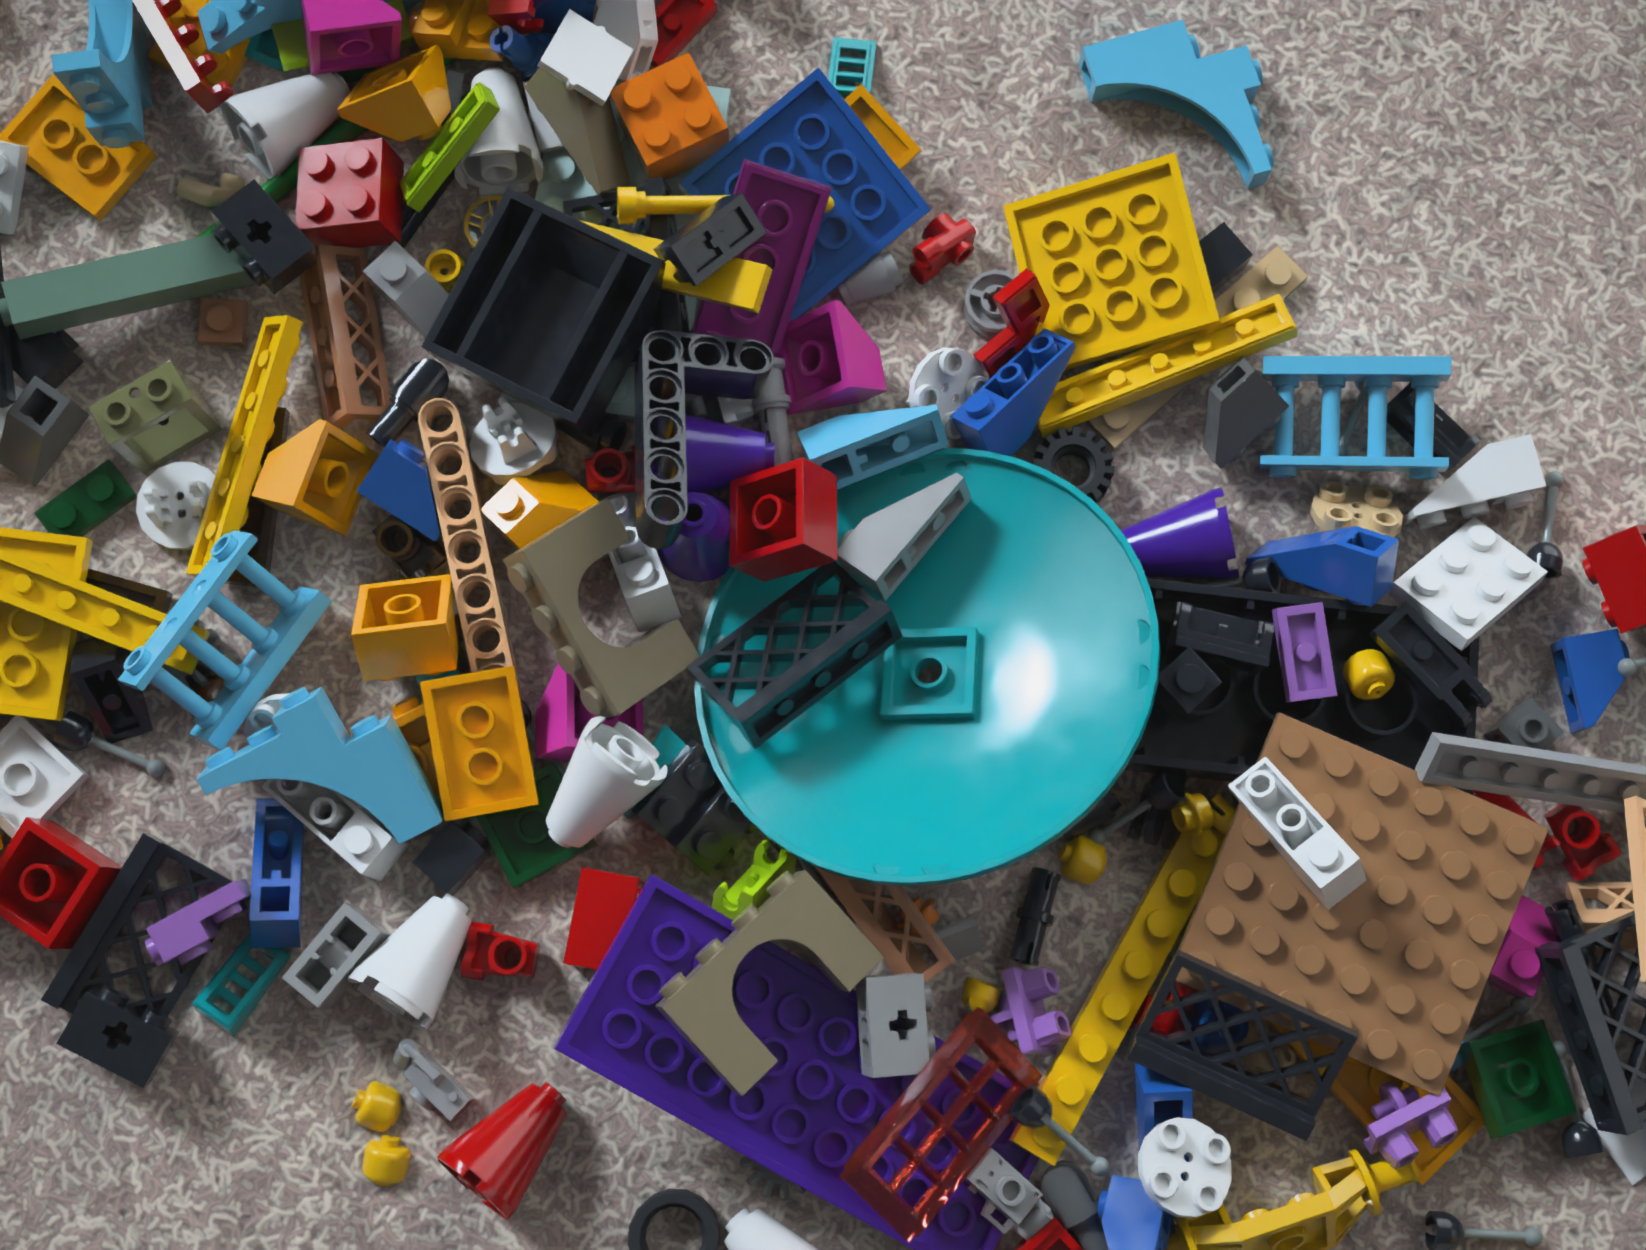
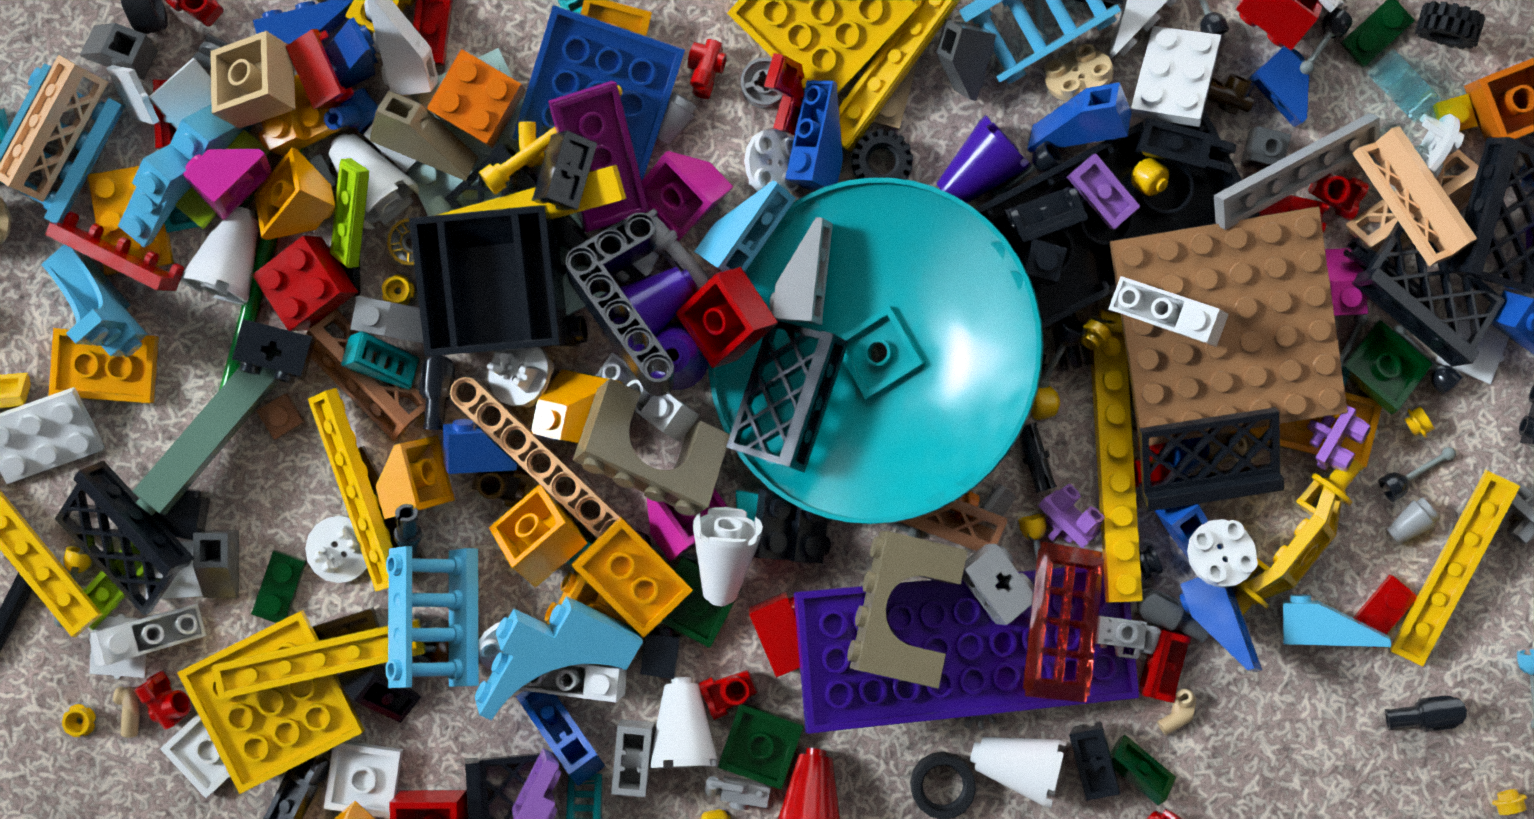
camera: 40 degrees left, 10 degrees up
(77, 733) = (378, 729): hinge -> none
(135, 424) = (295, 504): olive window -> none
(208, 194) = (213, 339): tan arm -> none
(267, 522) = (407, 530): none -> black pin
(352, 326) = (360, 353): none -> teal slope
(493, 1043) = (760, 745): none -> dark green plate
(585, 57) = (399, 98): white piece -> none
(611, 460) = (599, 342): red plate -> none
(698, 185) = (527, 135): none -> yellow arm
(753, 883) = (856, 554): lime hinge -> none
(1035, 1110) = (1111, 578): hinge -> none
(1092, 1128) = (1150, 562): none -> black bush
(1519, 1173) = (1419, 422): none -> yellow plate
(1520, 650) = (1232, 95): none -> dark brown plate

